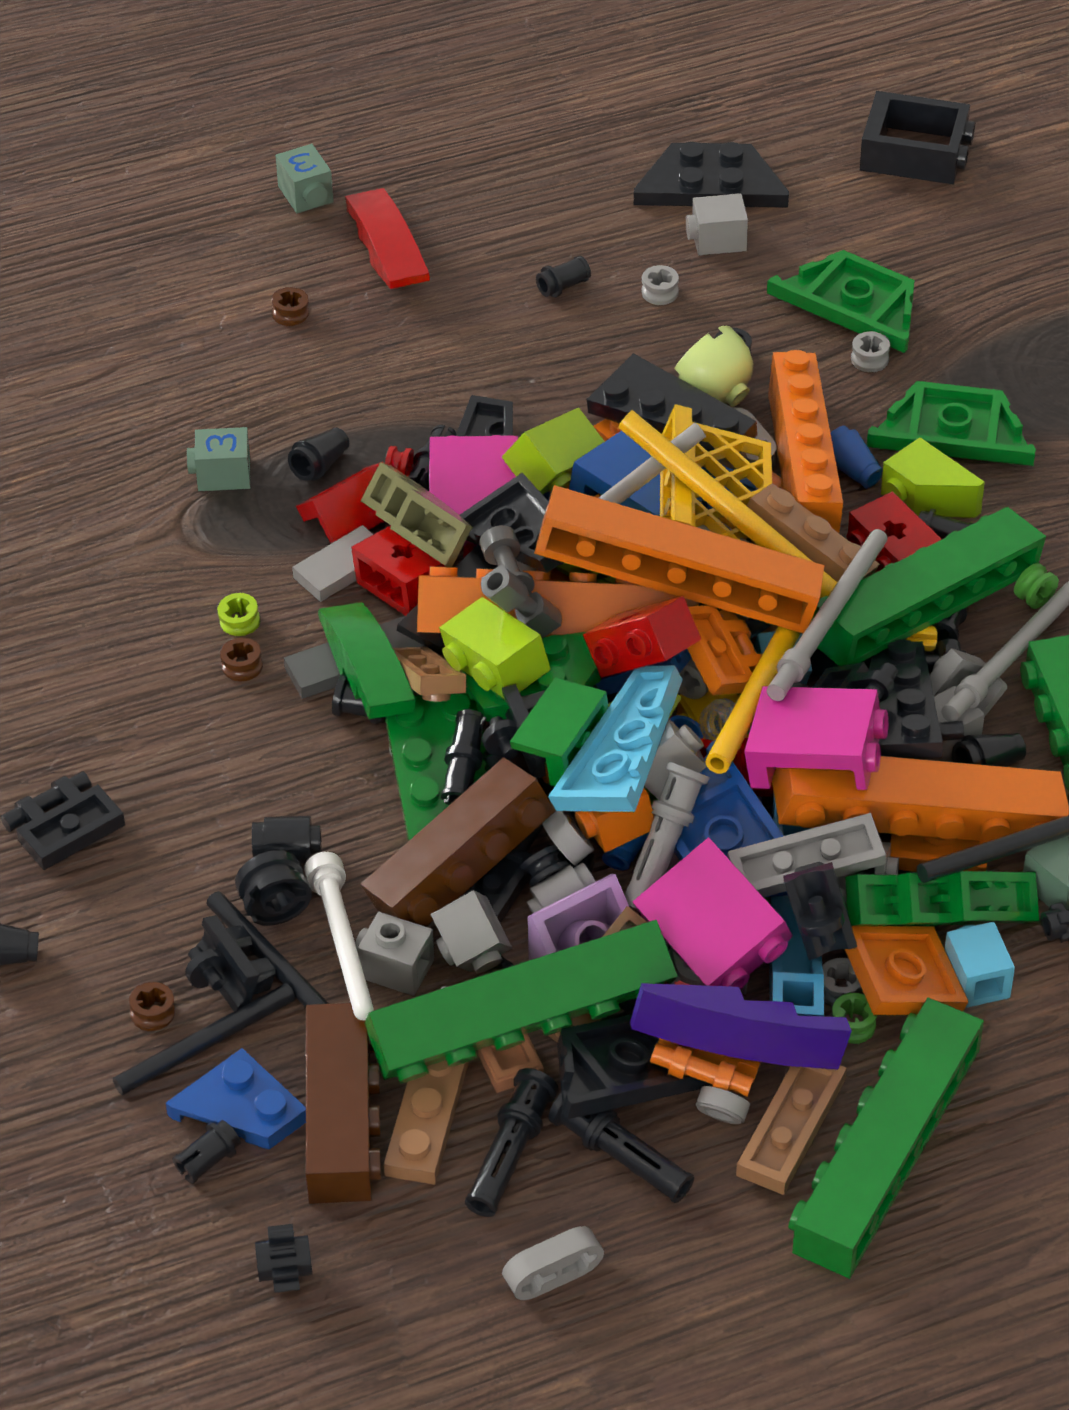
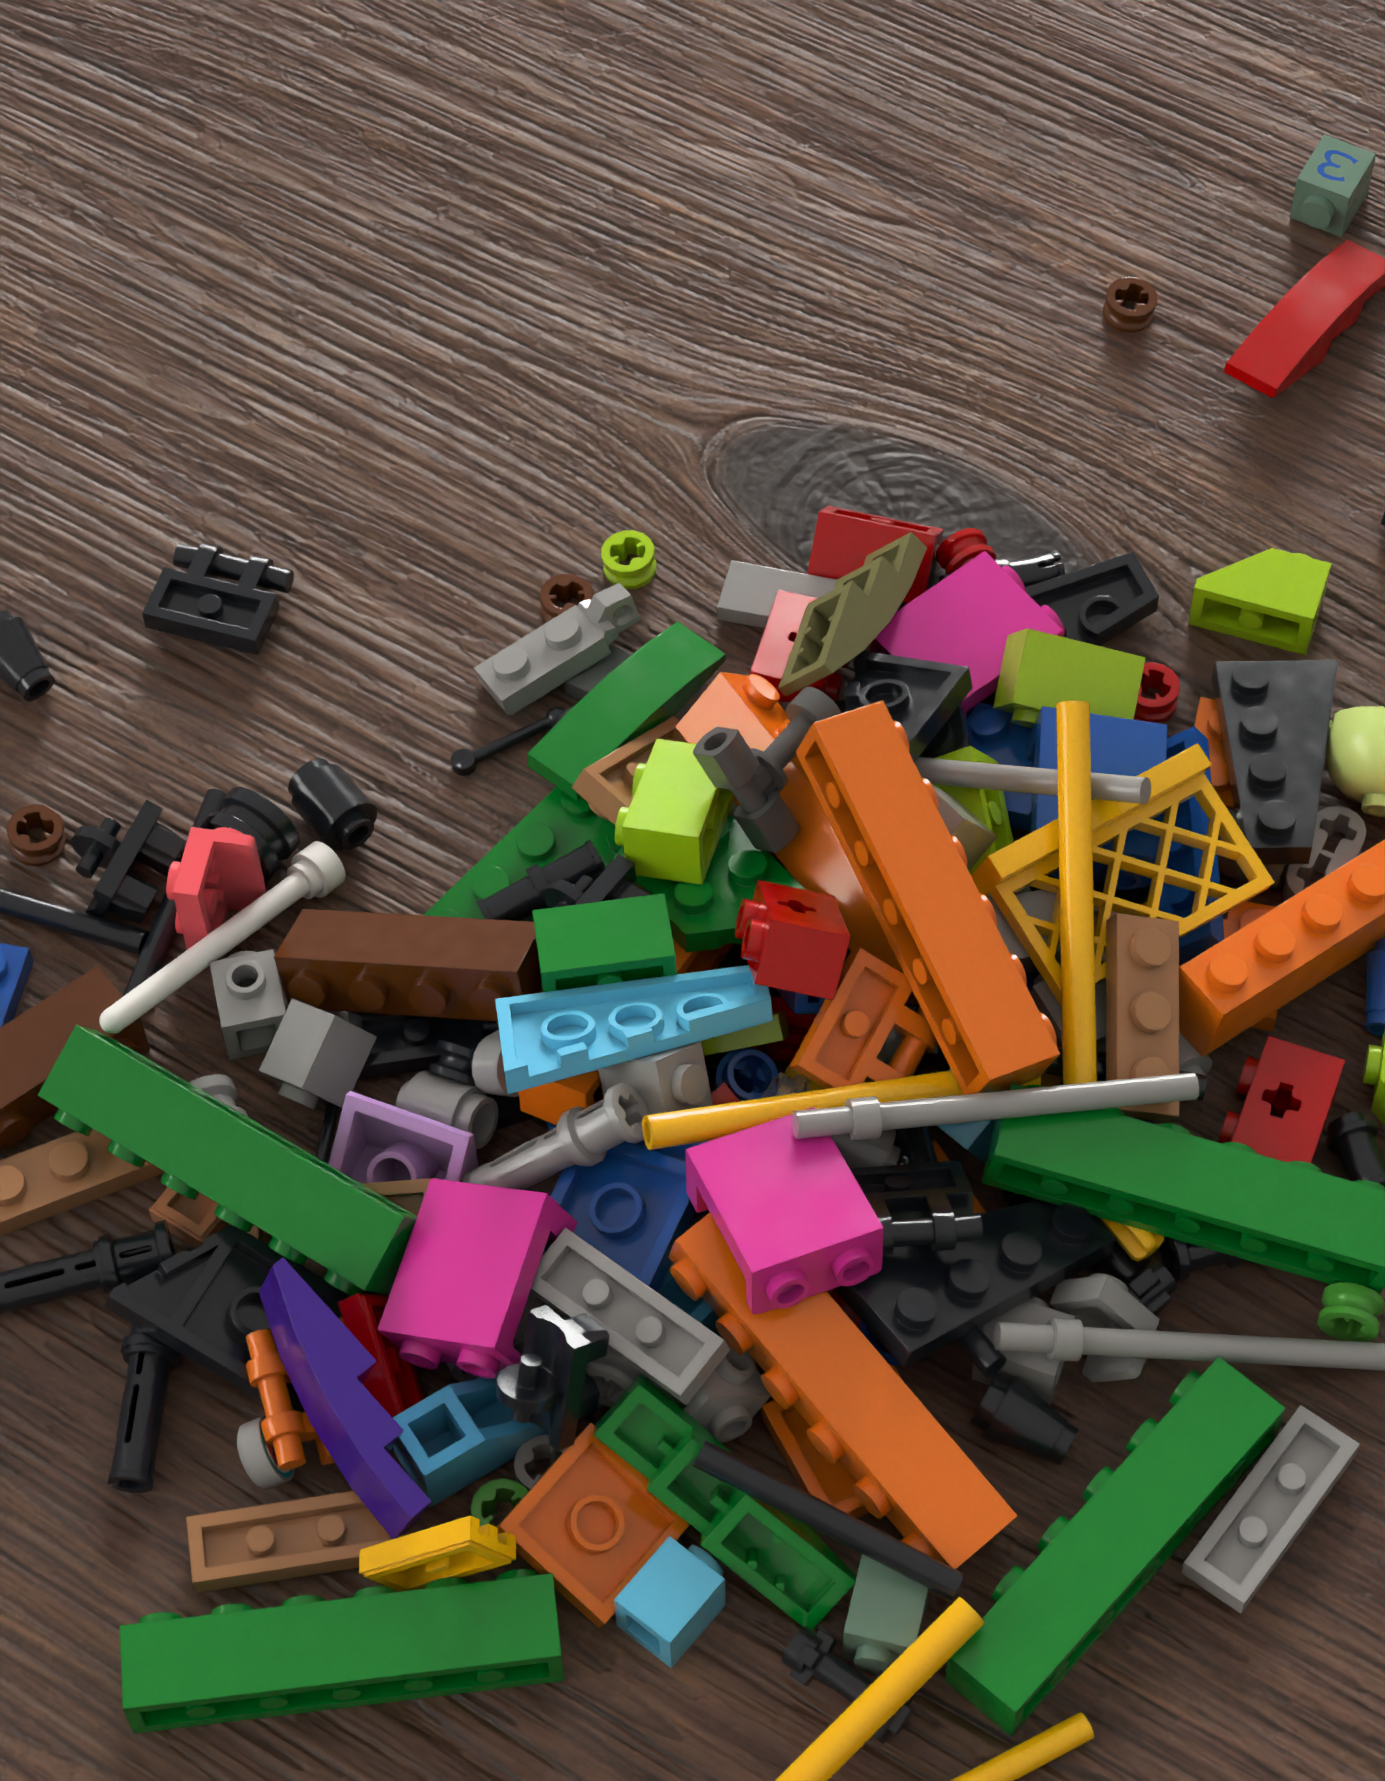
camera: 55 degrees right, 10 degrees up
(220, 459) = (830, 396): sand green brick -> none
(278, 678) = (557, 649): none -> light grey hinge
(304, 919) = (214, 876): none -> coral bracket
(307, 767) = (465, 760): none -> black hinge
(316, 454) = (920, 473): black cone -> none
(560, 362) = (1263, 599): none -> lime slope
(872, 1044) = (437, 1553): none -> yellow tile

